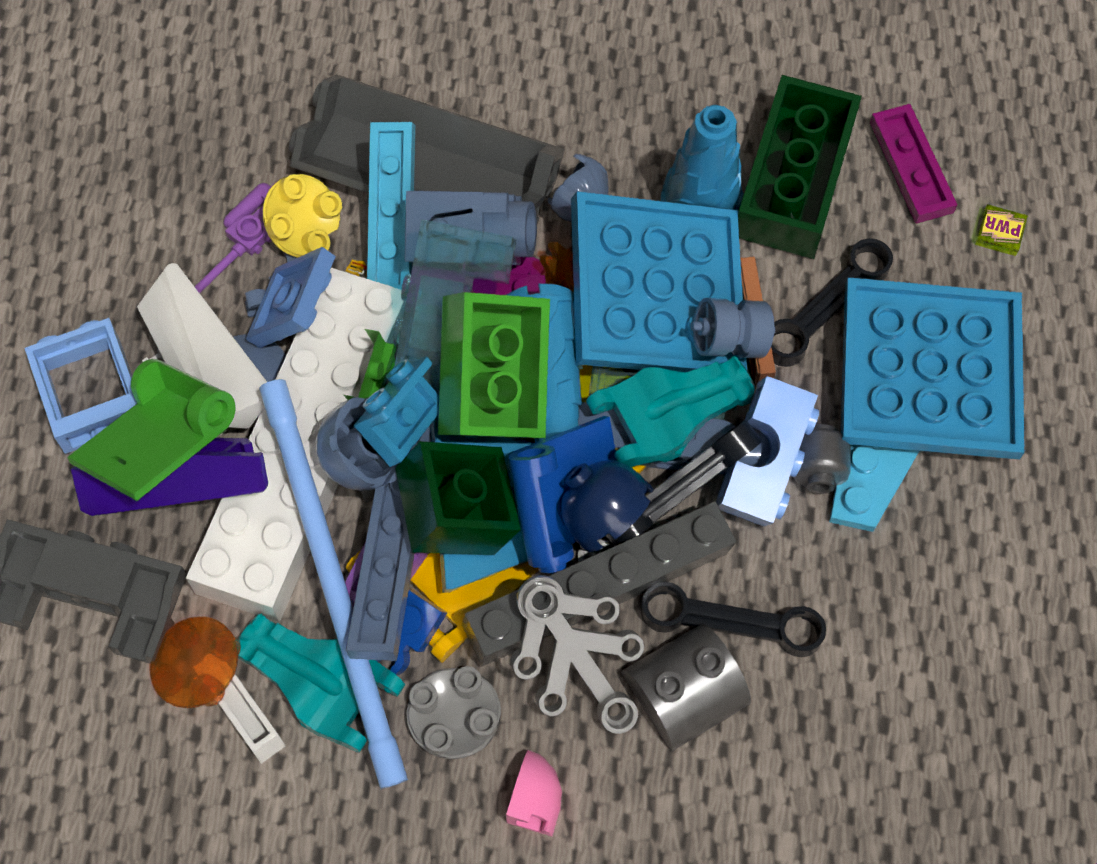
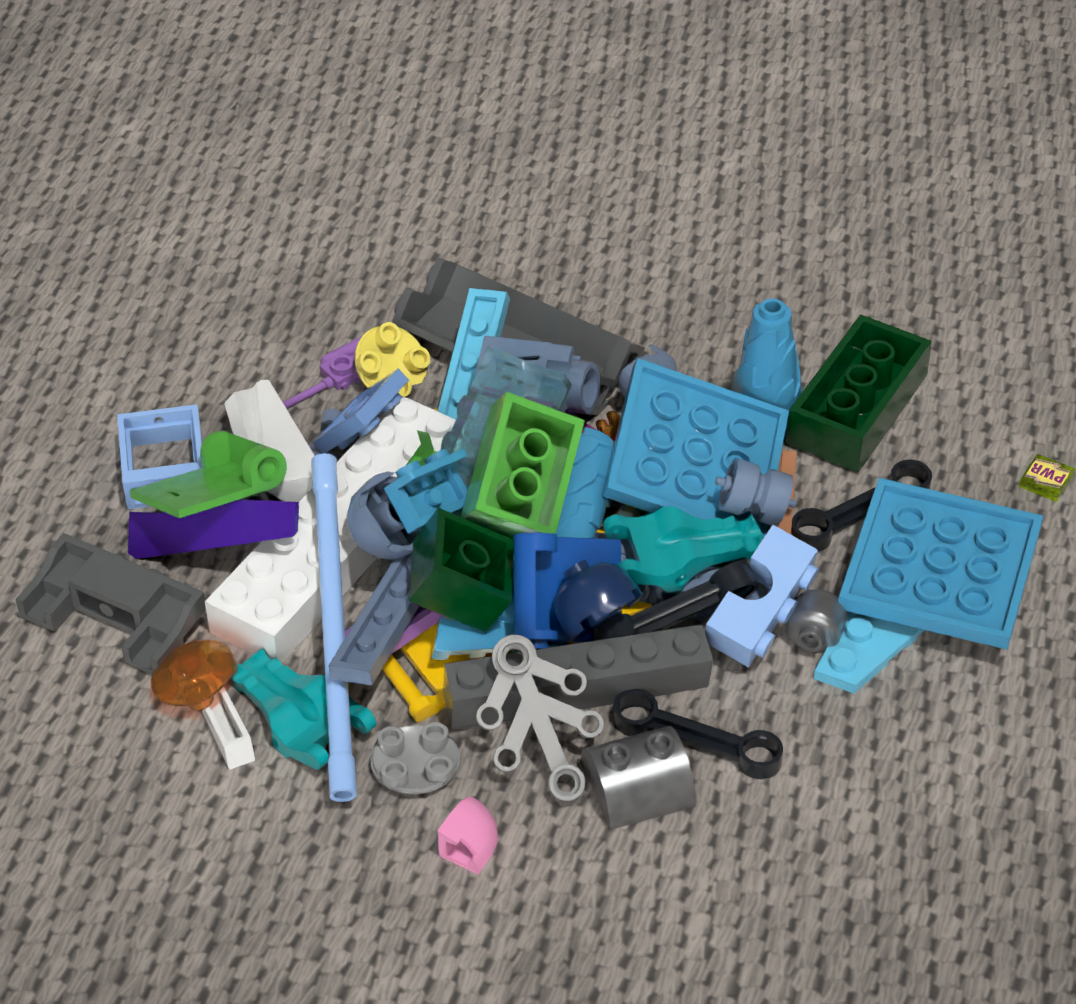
camera: 15 degrees right, 20 degrees down
(419, 626) = (396, 683): blue plate -> none
(913, 163) = (974, 412): magenta plate -> none

